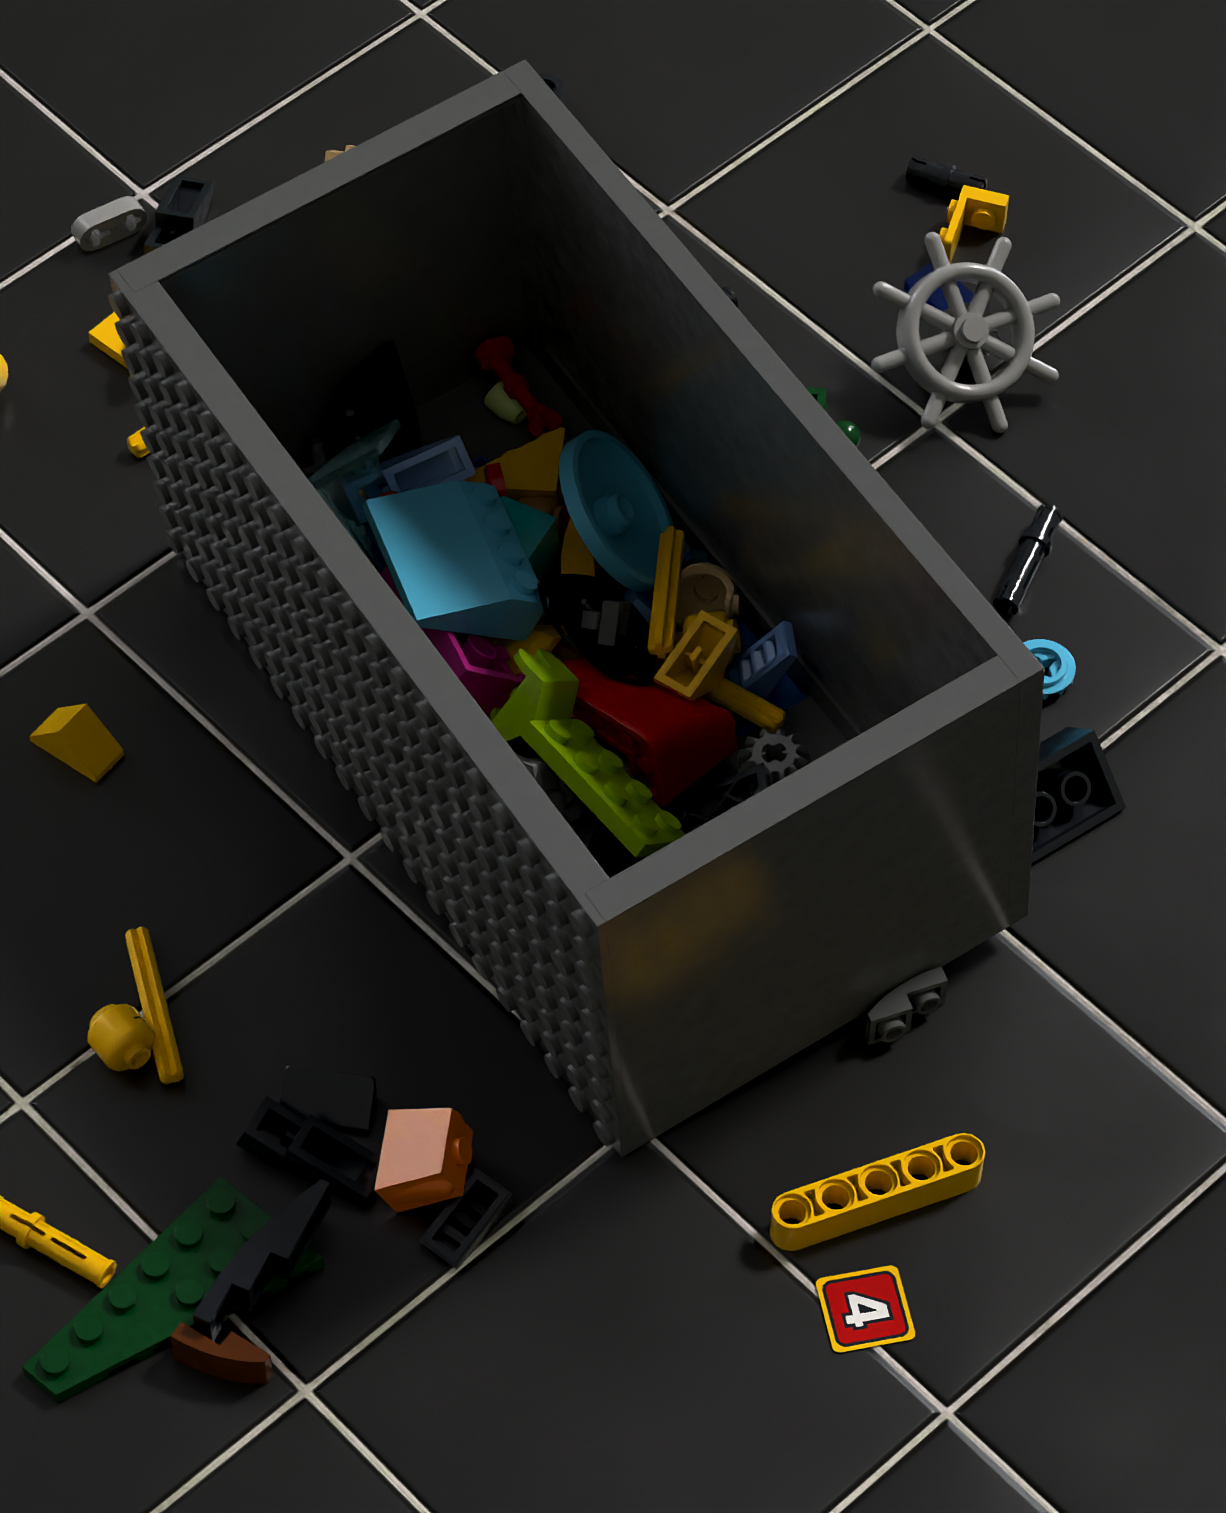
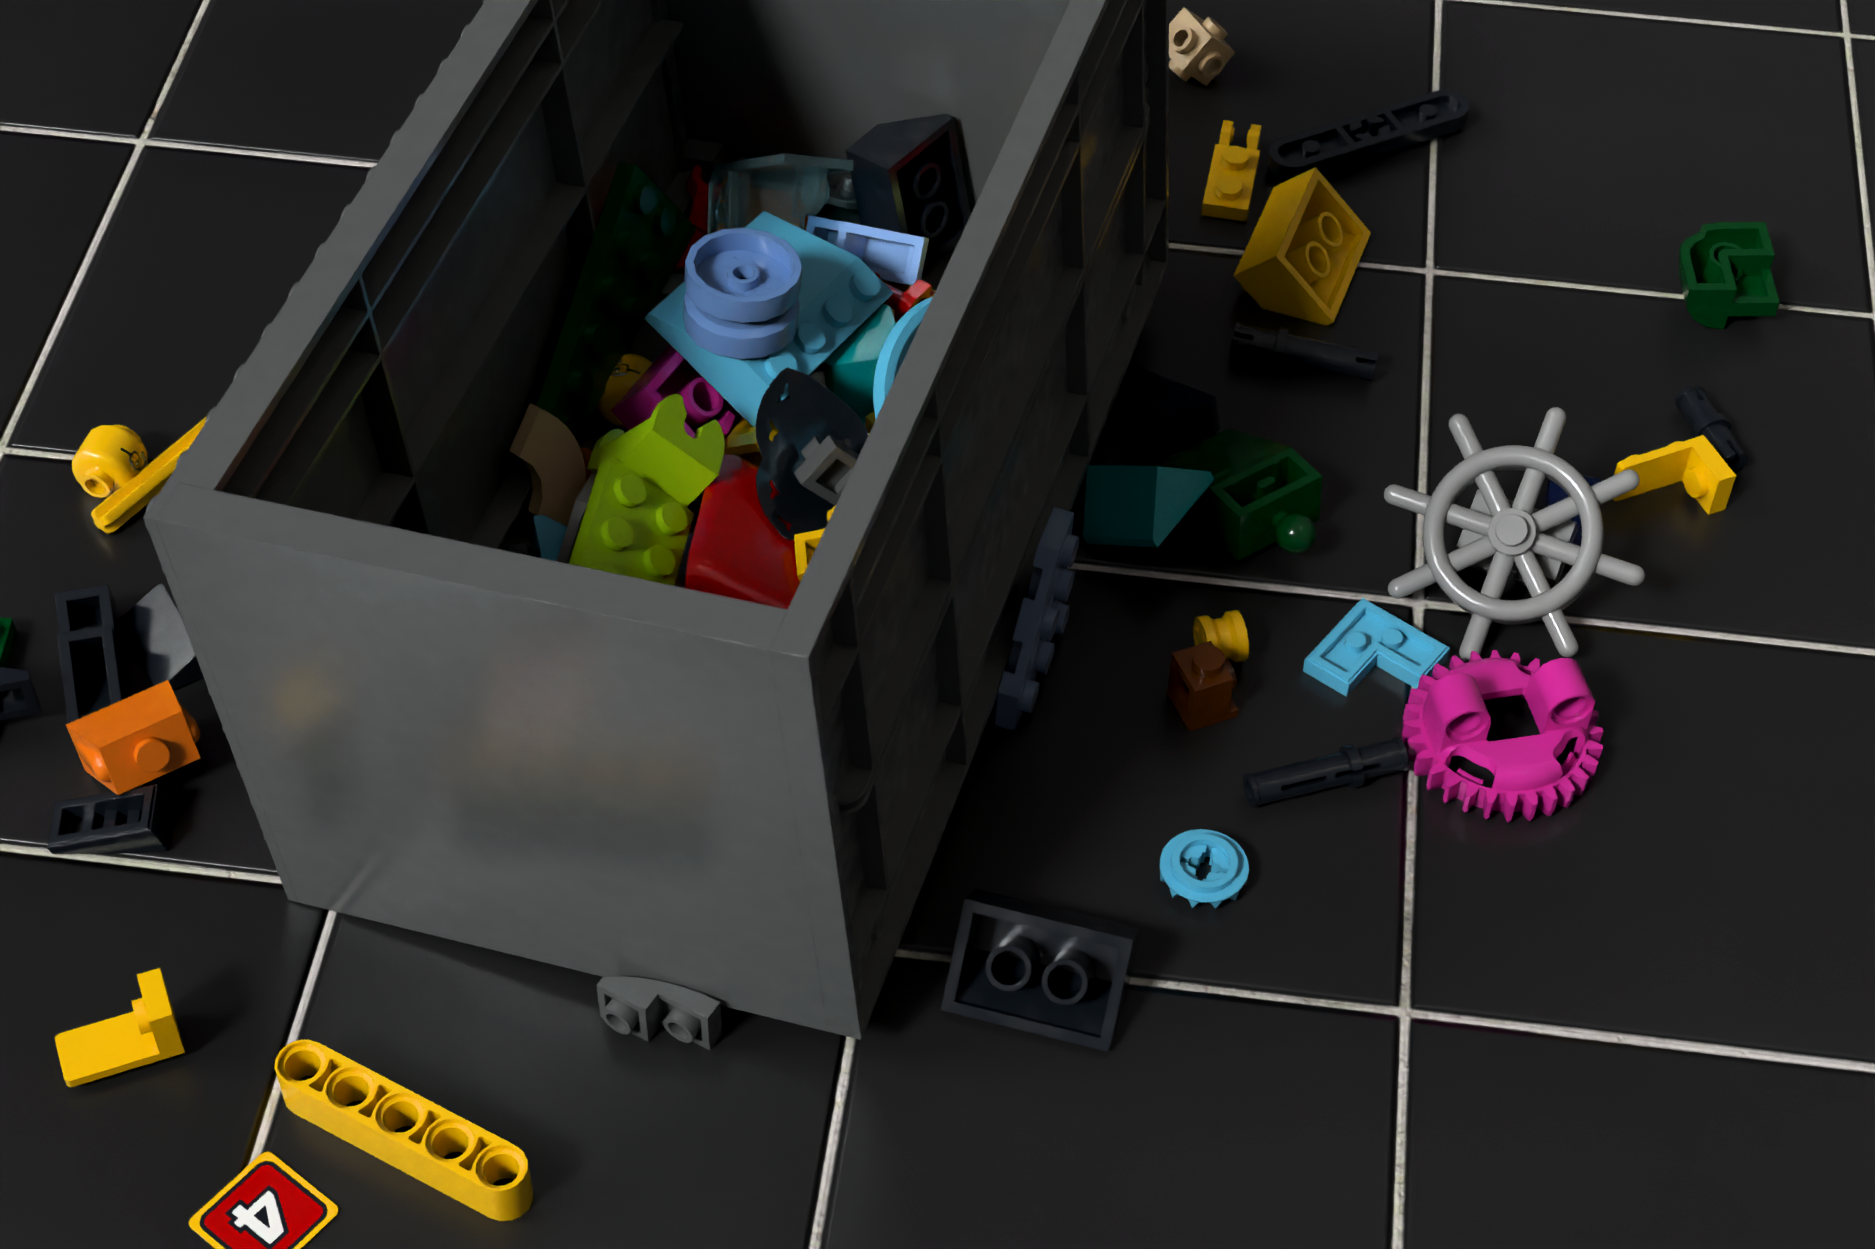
camera: 50 degrees right, 5 degrees down
(473, 555) = (742, 293): none -> medium blue wheel
(668, 1300) = (124, 1040): none -> yellow bracket
(841, 69) = (1728, 272): none -> dark green brick
(945, 465) = (1373, 638): none -> medium azure tile
(1067, 462) = (1451, 720): none -> dark pink piece

